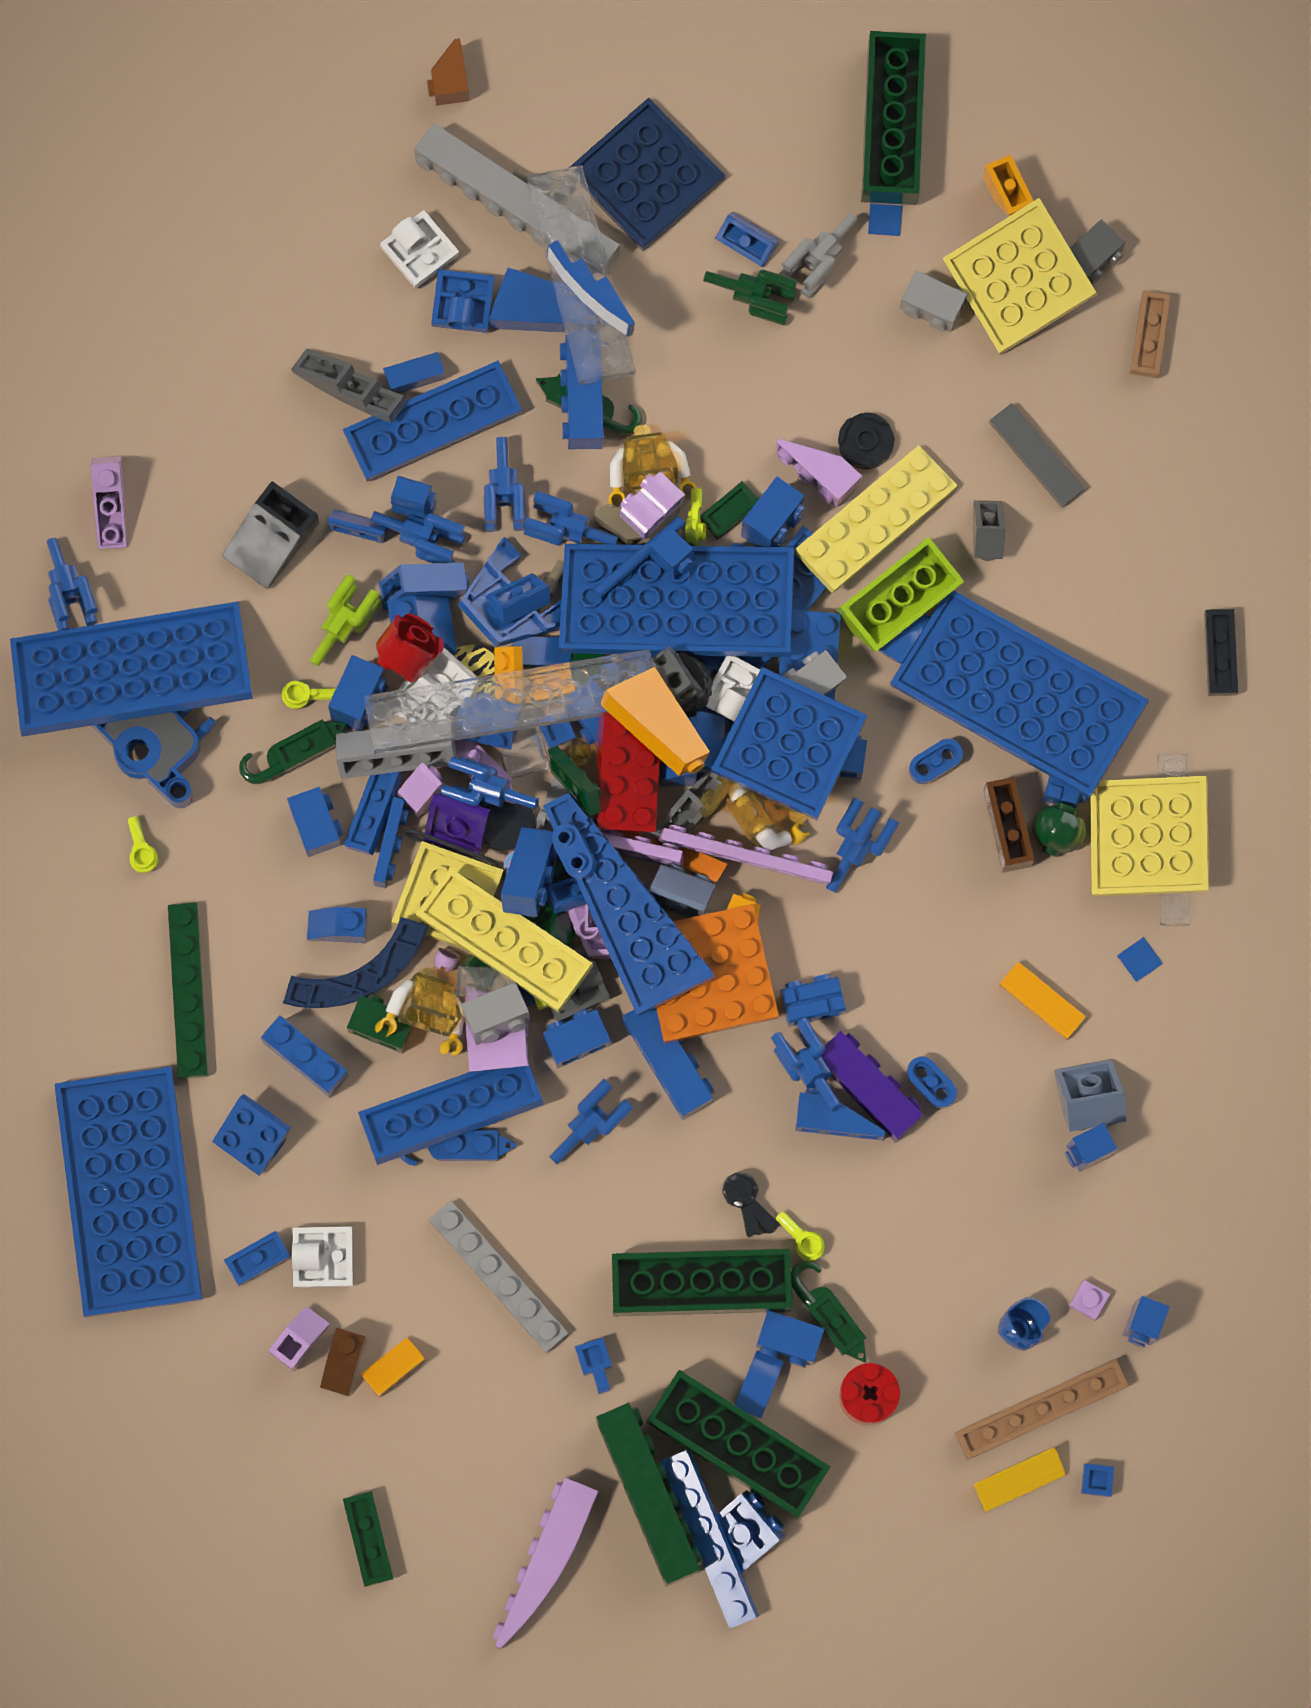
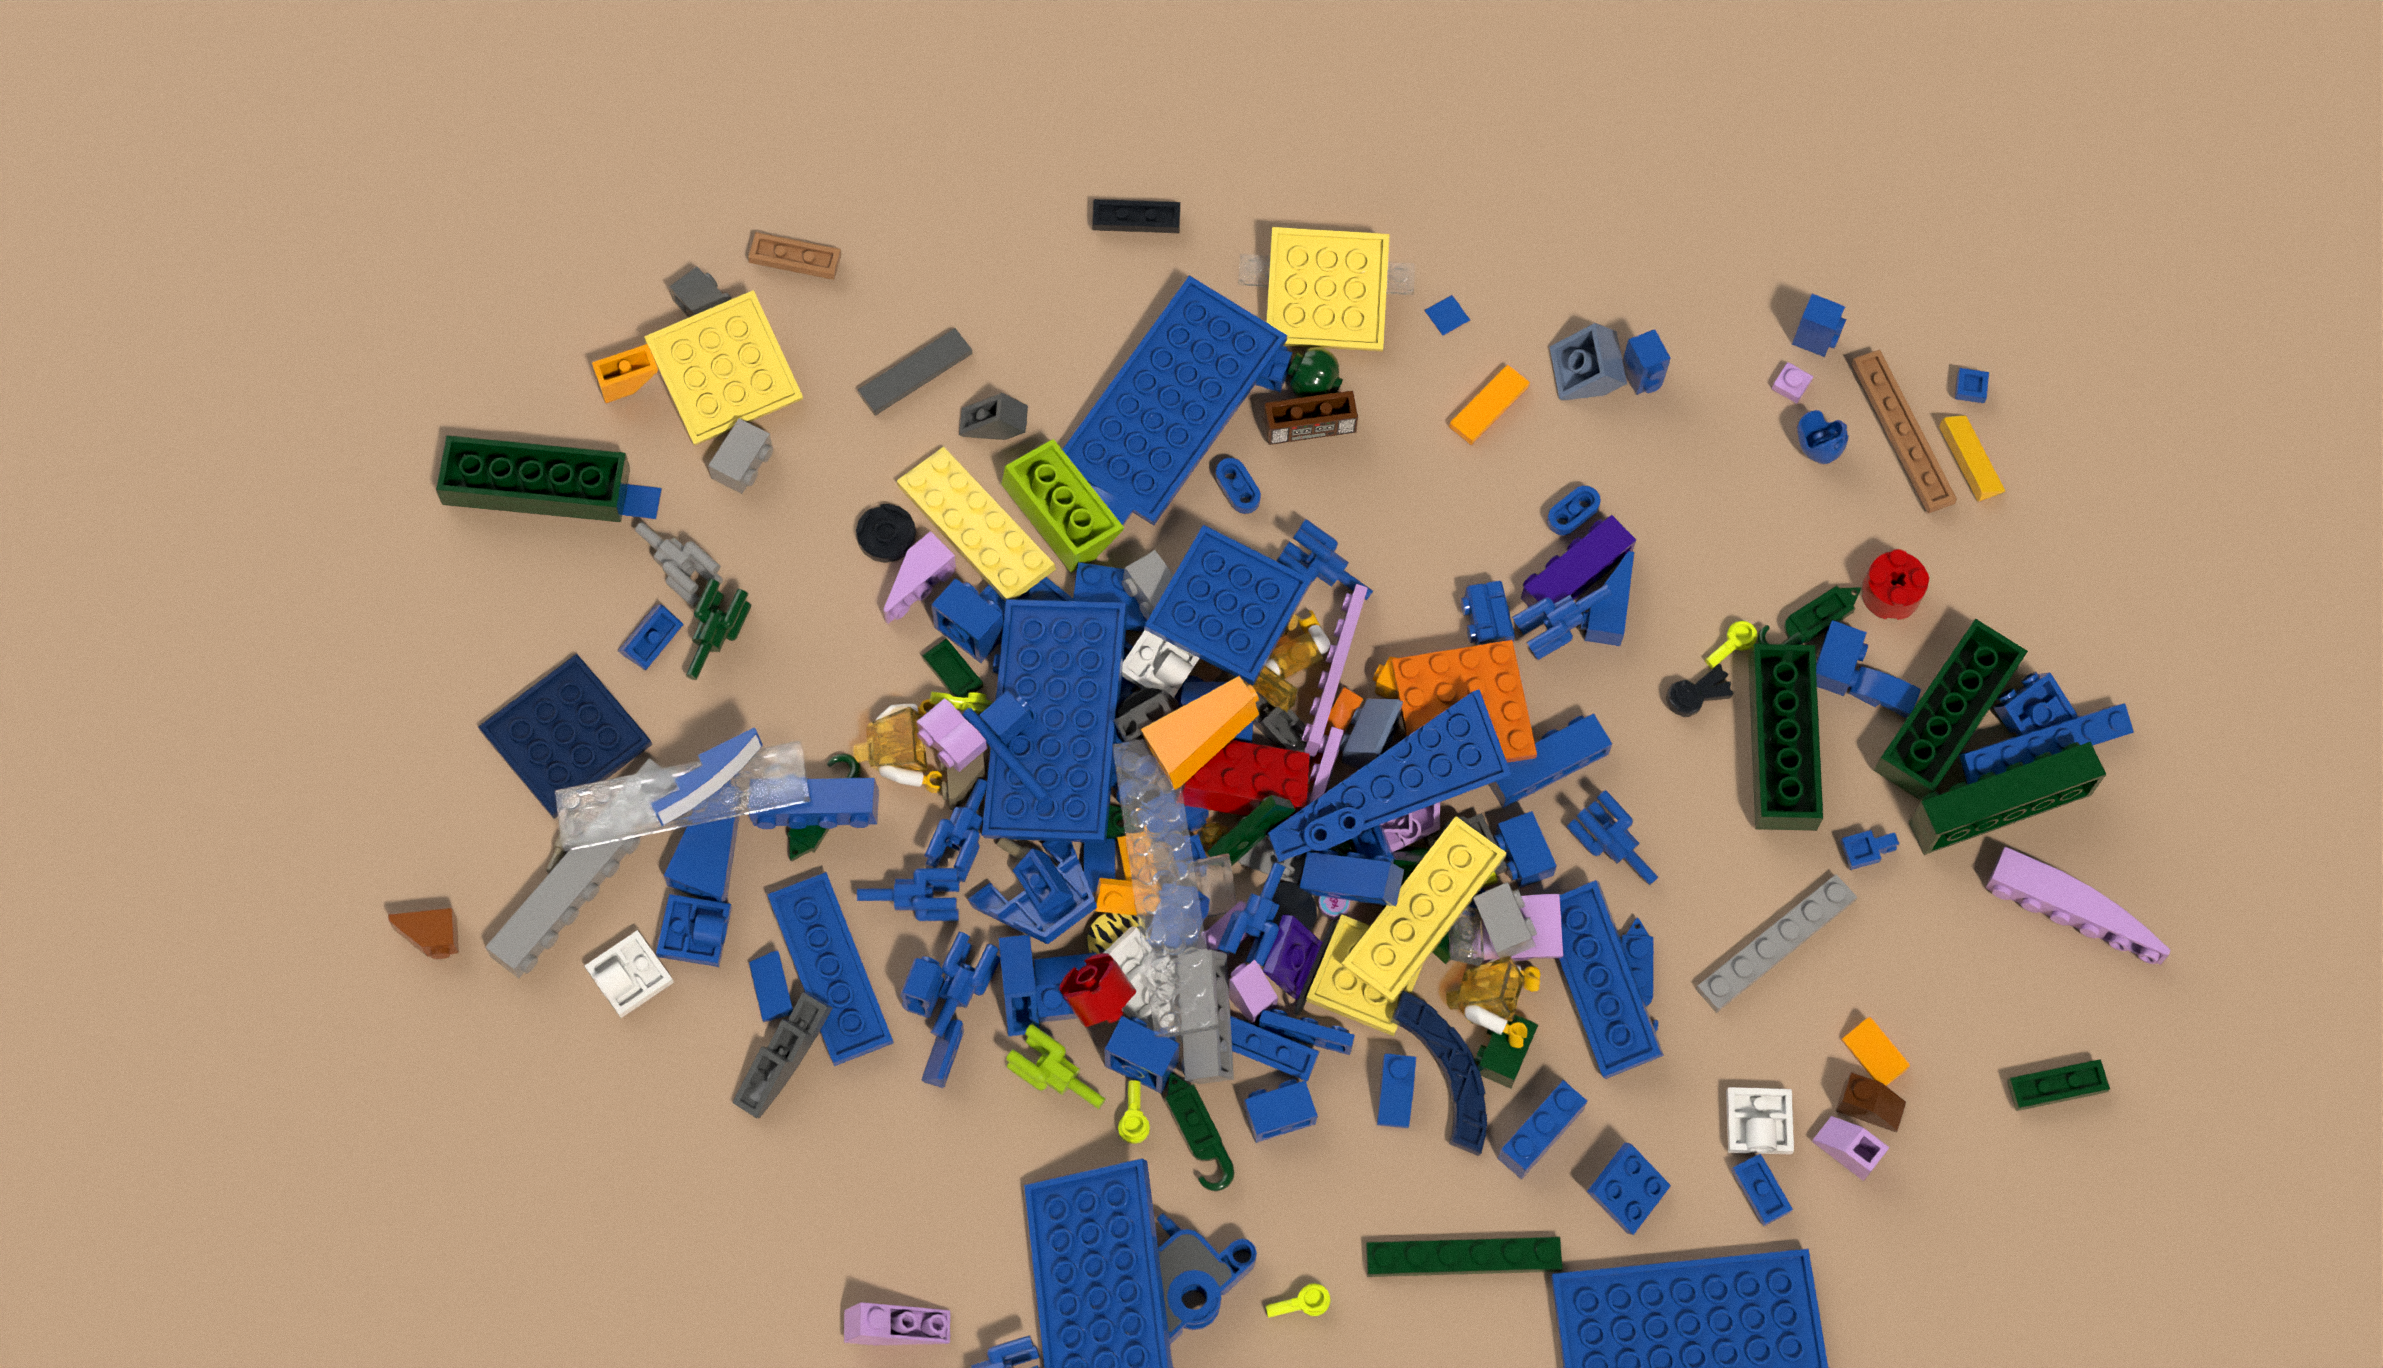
camera: 85 degrees left, 10 degrees down
(270, 535) = (951, 1145): slope -> none
(446, 959) = (1436, 980): lavender hinge -> none

